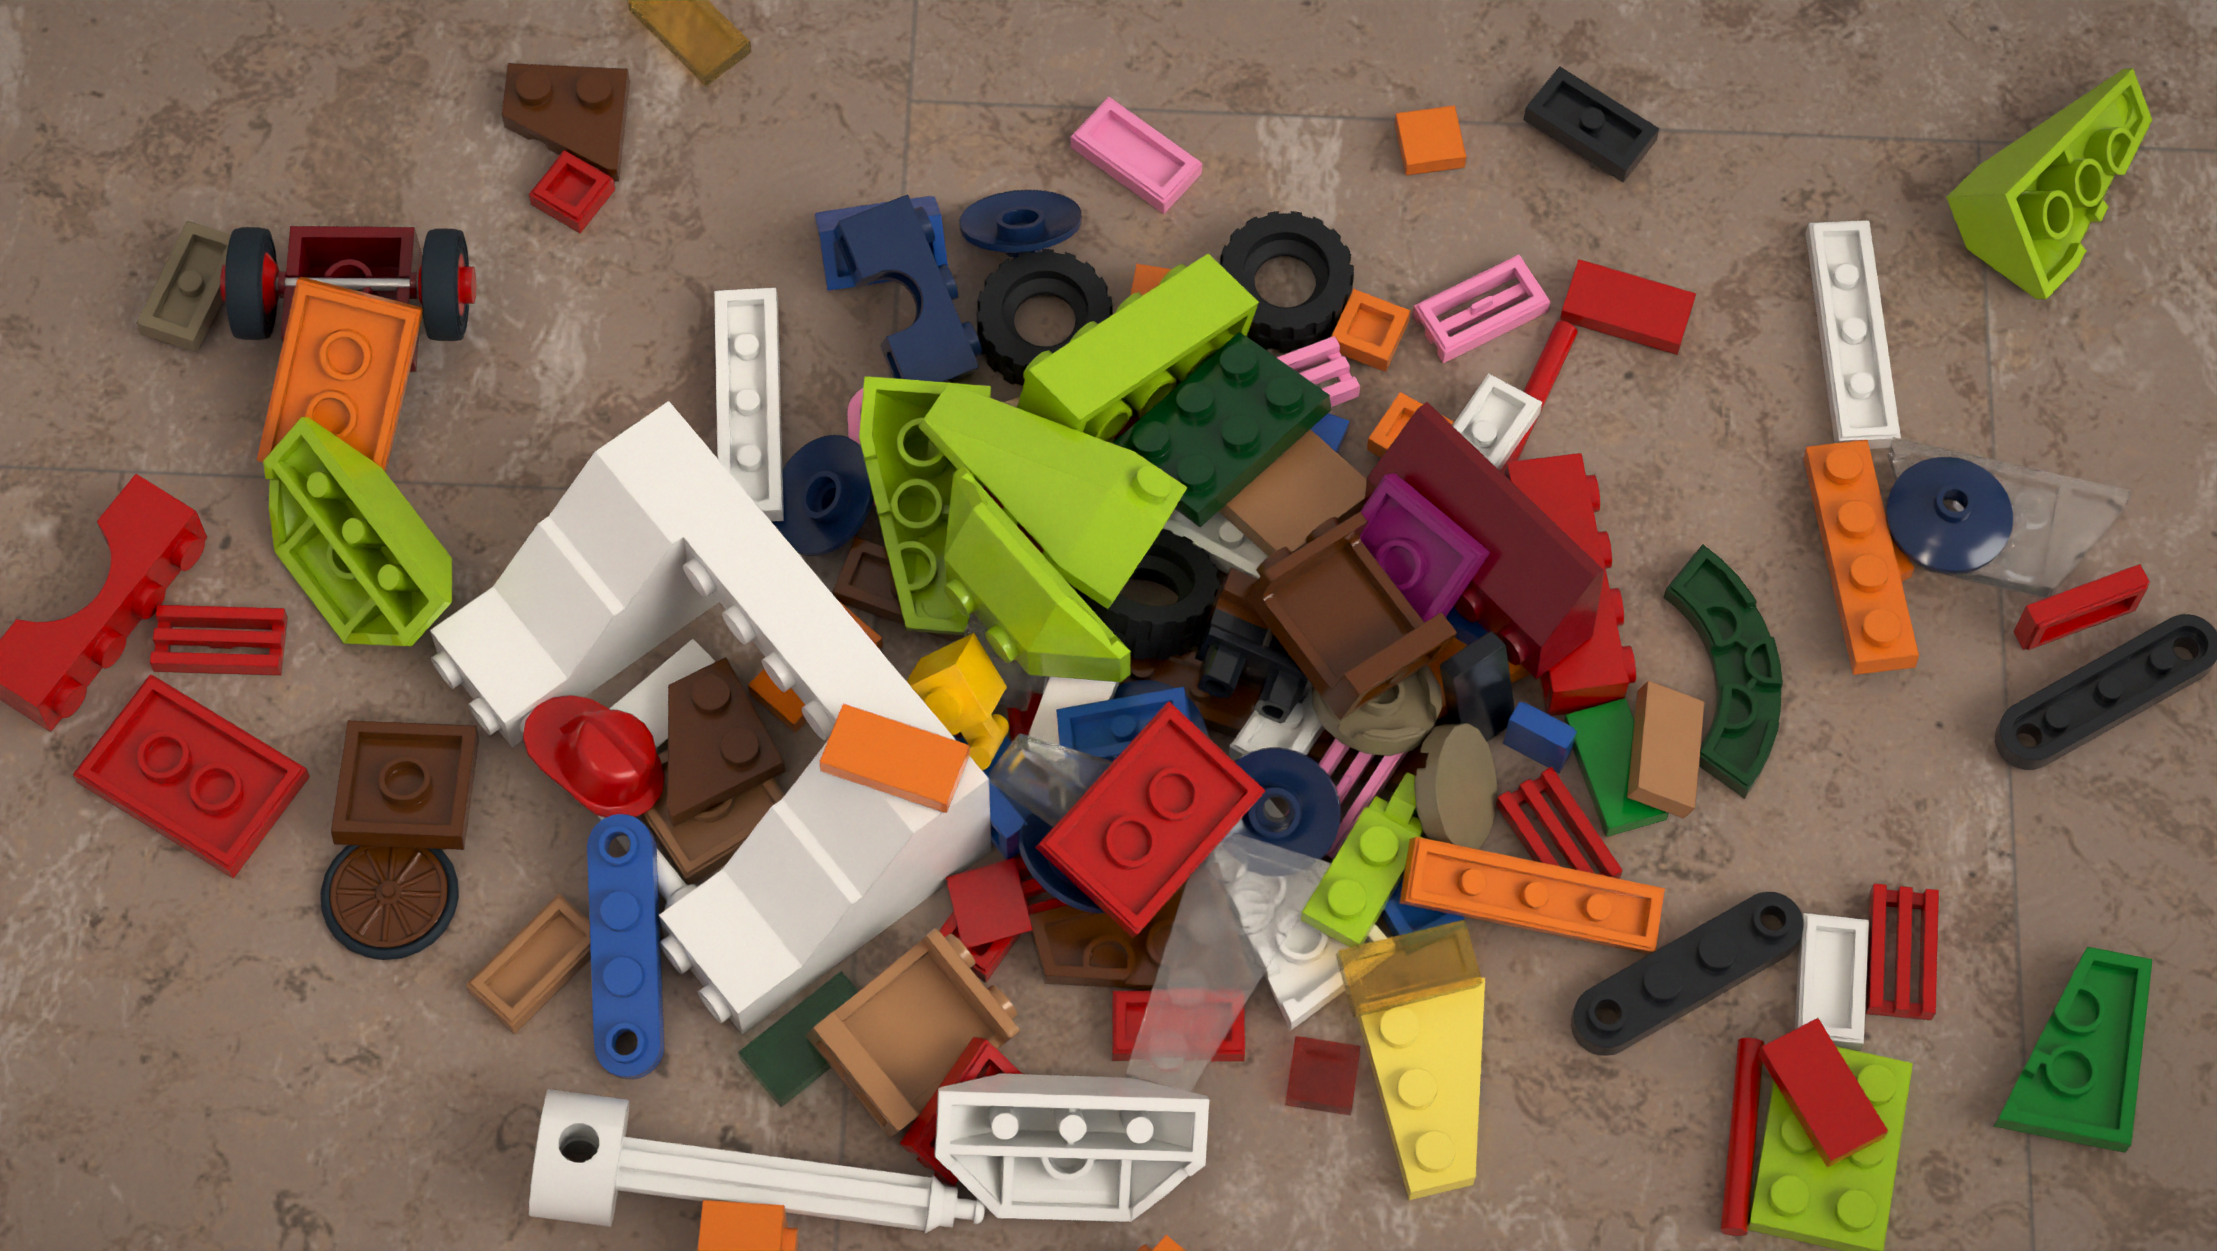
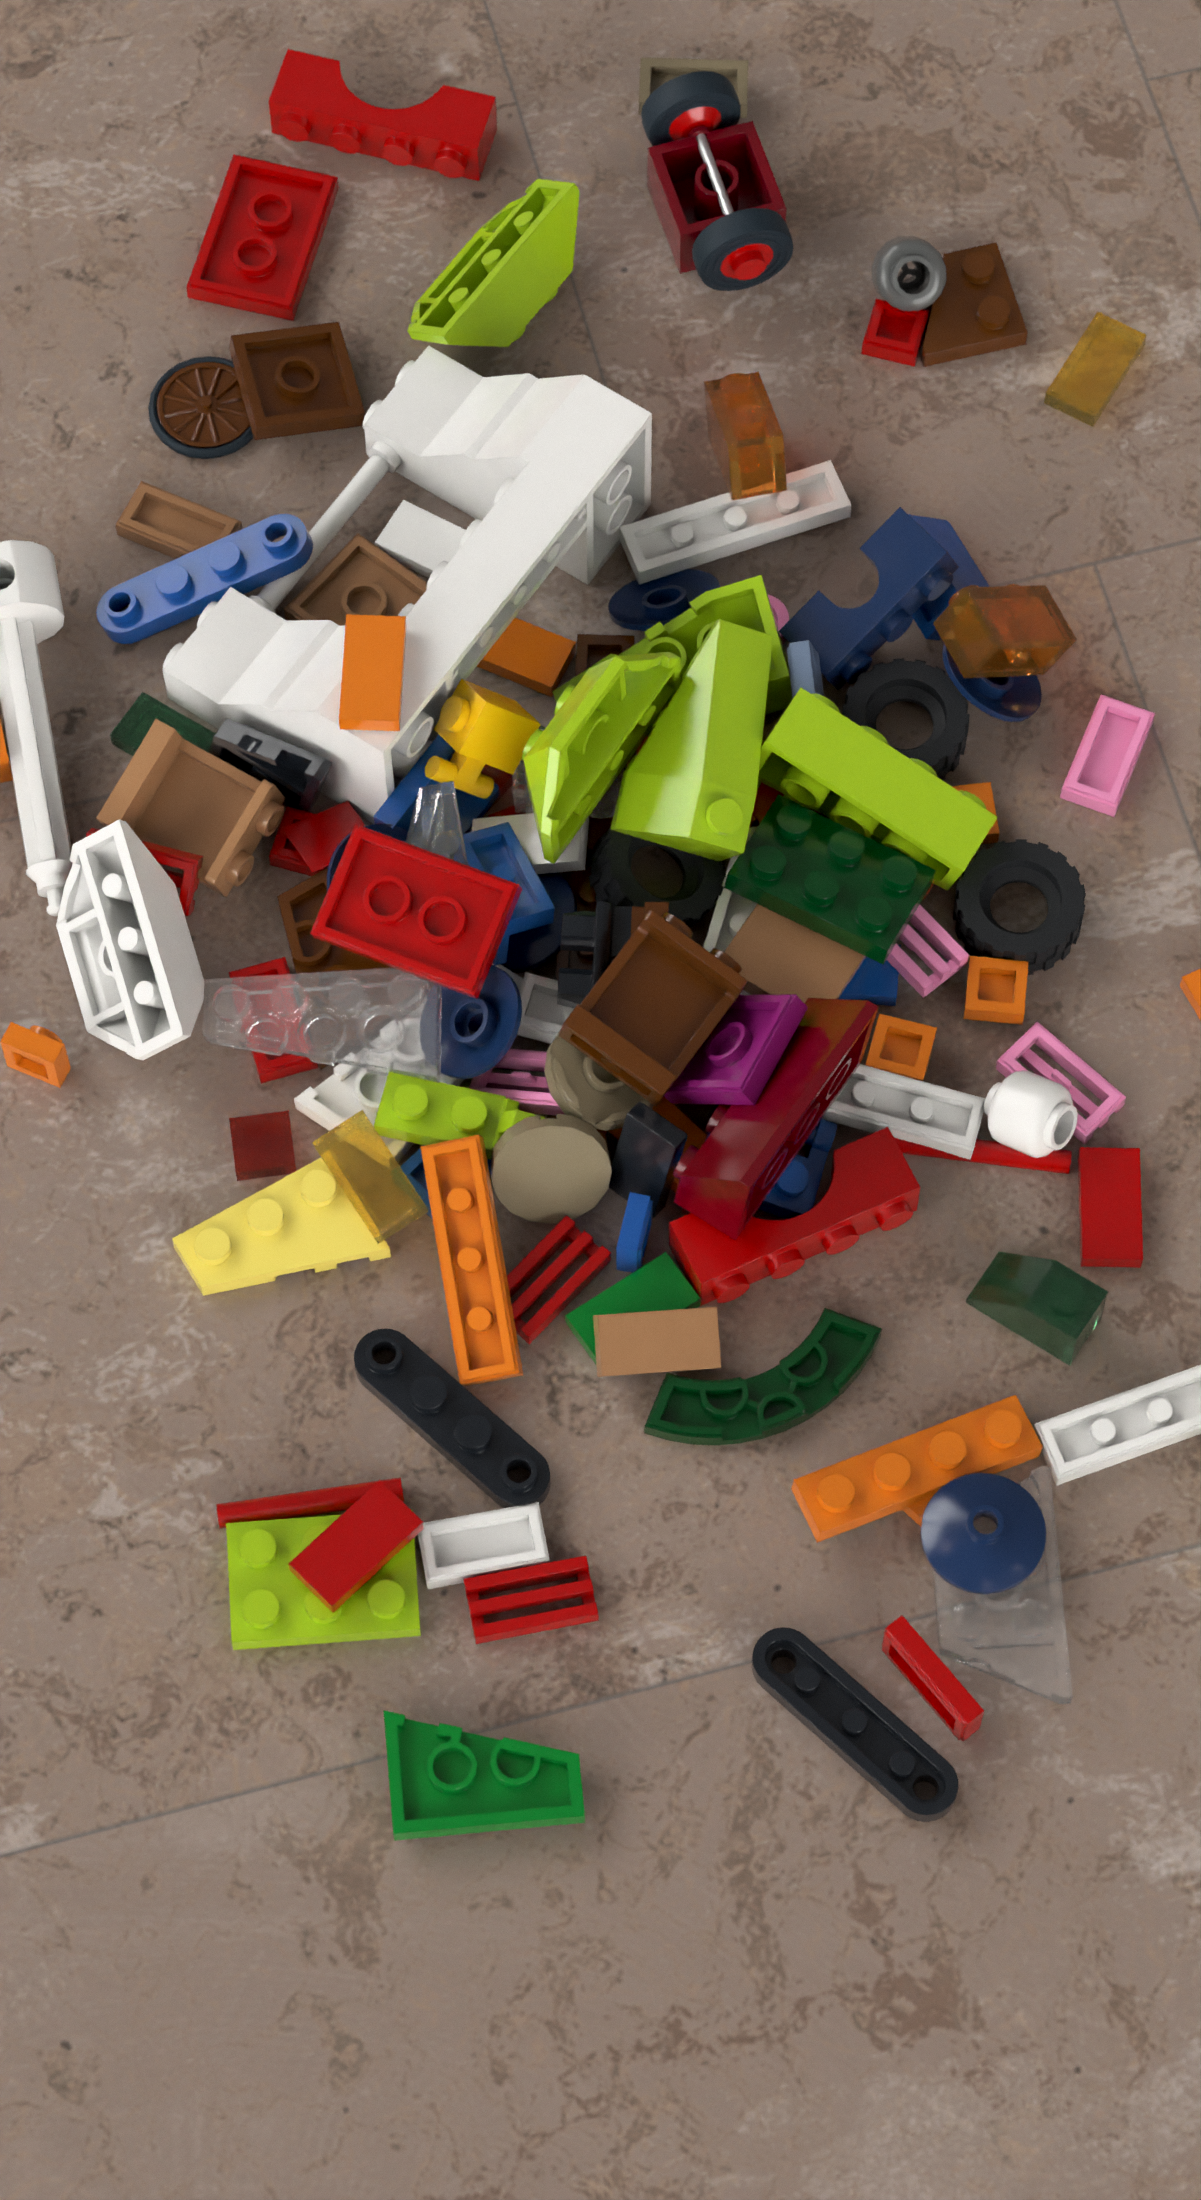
camera: 75 degrees right, 0 degrees up
(219, 617) = (376, 181): red tile -> none
(343, 367) = (636, 205): orange tile -> none
(522, 148) = (926, 280): none -> dark grey head
(596, 755) = (361, 502): red piece -> none
(664, 355) = (745, 435): none -> clear orange brick
(714, 742) = (391, 578): reddish brown wing -> none
(896, 929) = (290, 768): none -> black wing
(980, 371) = (804, 668): none -> sand blue tile
(984, 189) = (1004, 630): none -> clear orange brick
(1522, 336) = (1030, 1114): none -> white head
(1718, 393) = (1040, 1302): none -> clear green slope

